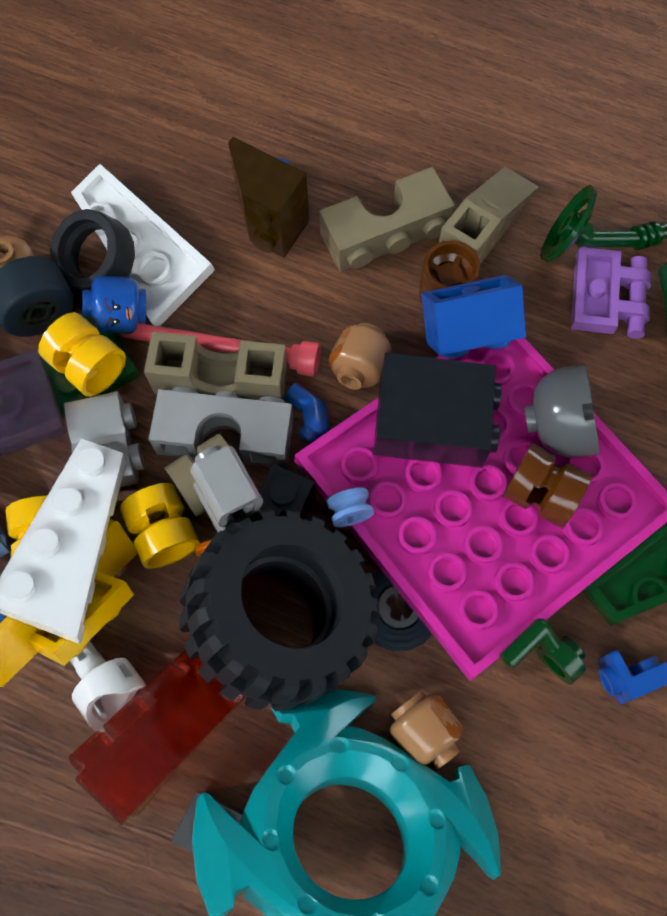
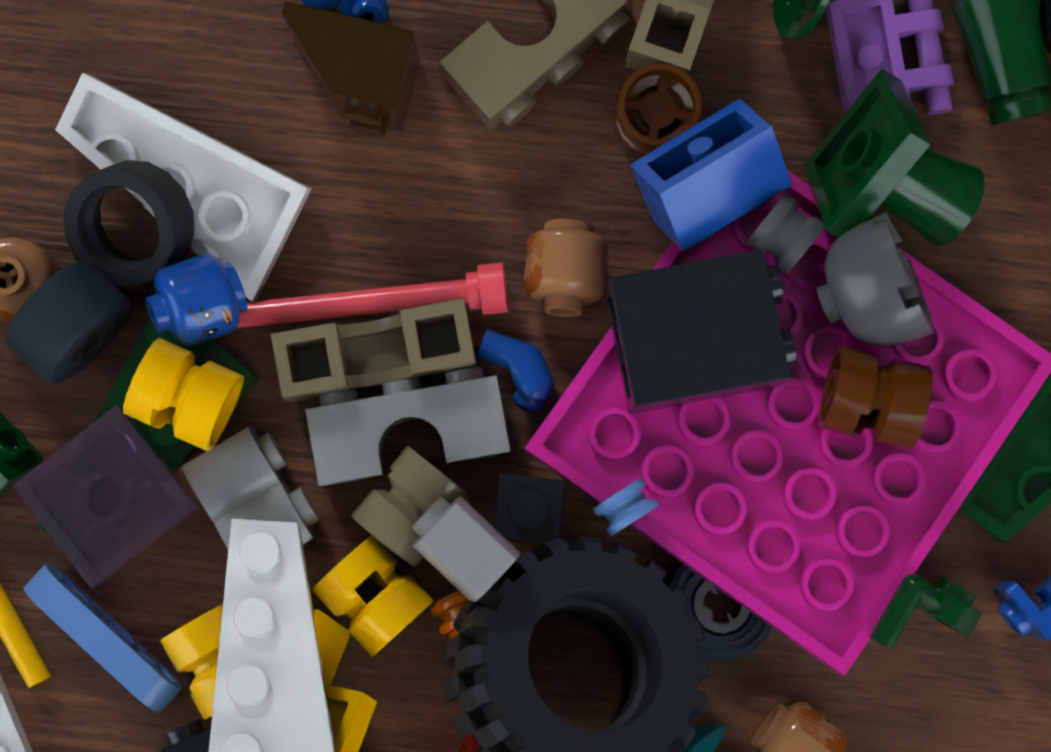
camera: 20 degrees left, 15 degrees up
(514, 367) = (786, 234): none -> dark grey wheel
(590, 339) = (884, 159): none -> dark green plant

